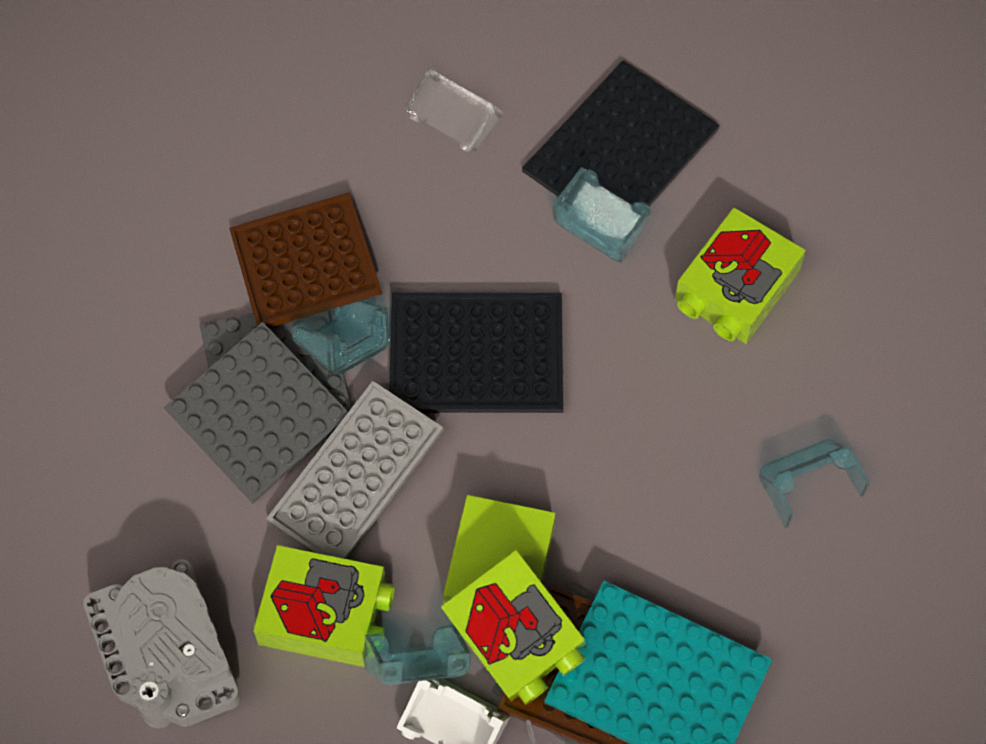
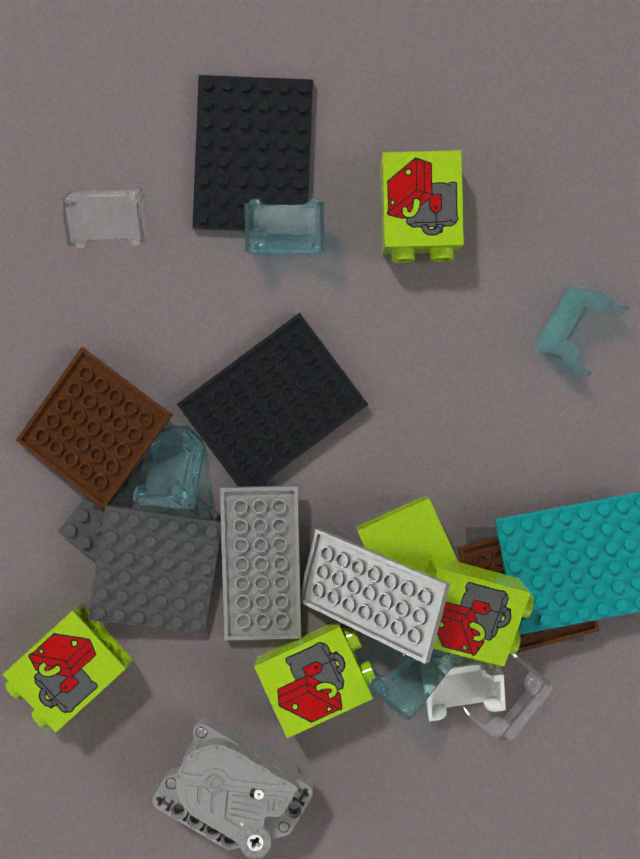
camera: 35 degrees left, 25 degrees up
(108, 438) = (66, 669): none -> brick
(438, 550) = (374, 594): none -> light grey plate

